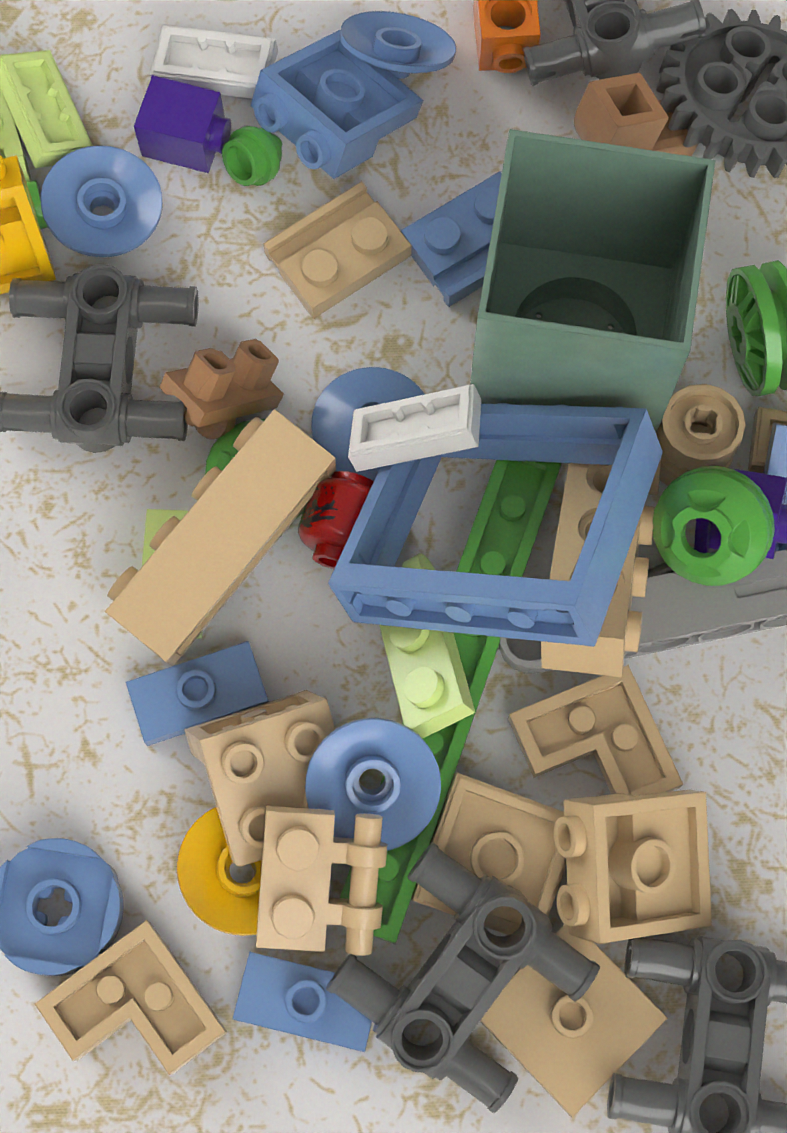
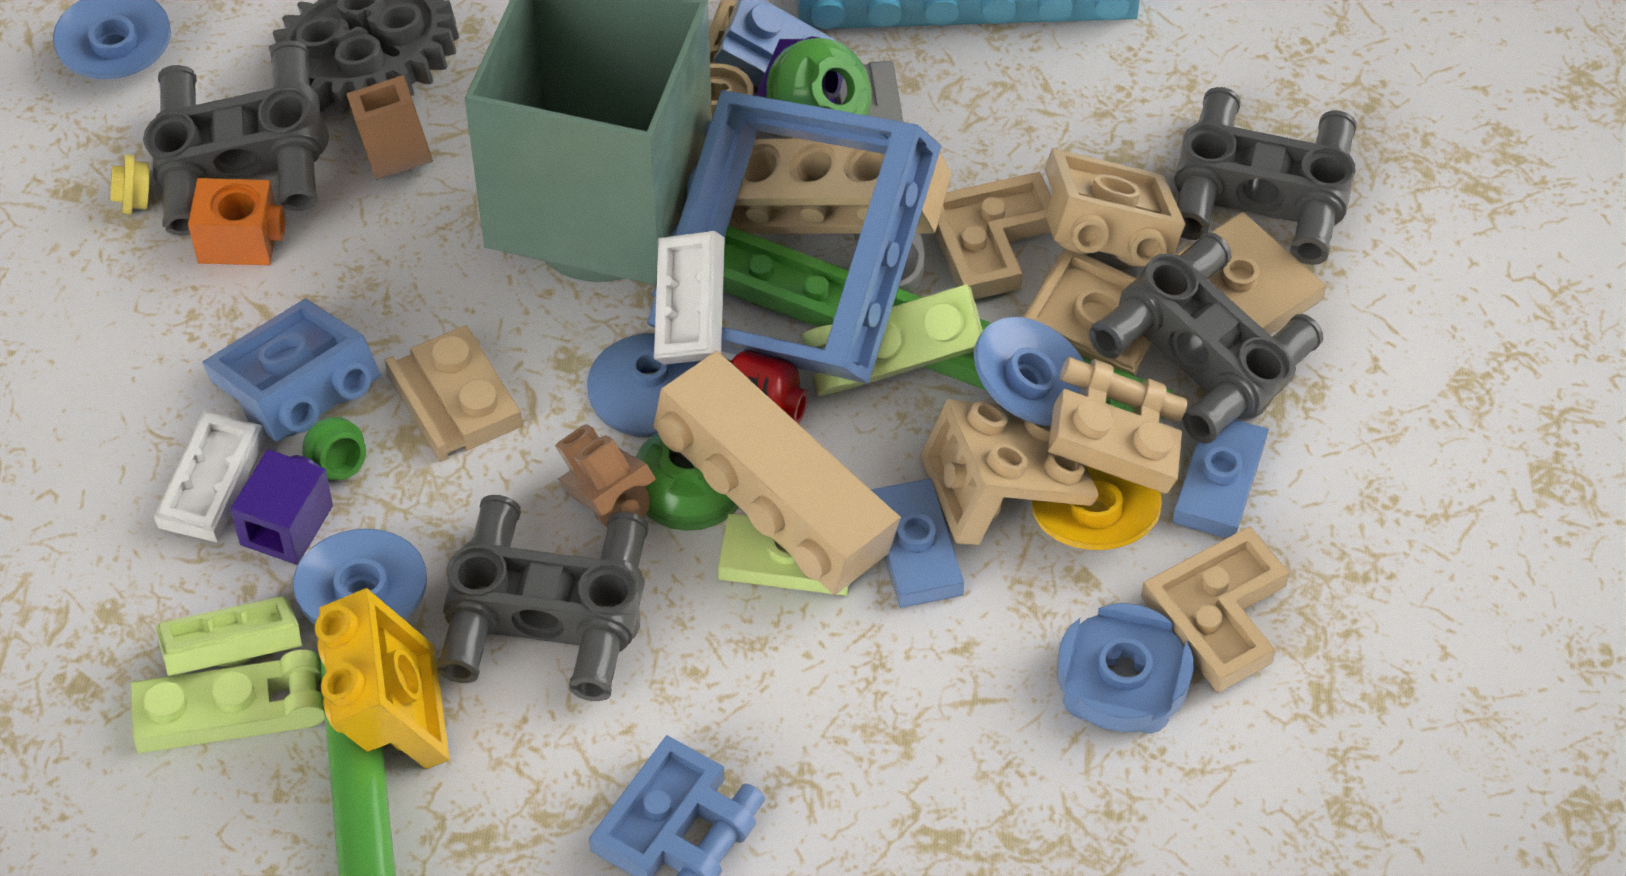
camera: 85 degrees left, 20 degrees down
(397, 42) = (235, 308): medium blue dish -> none
(455, 240) = (464, 280): medium blue plate -> none

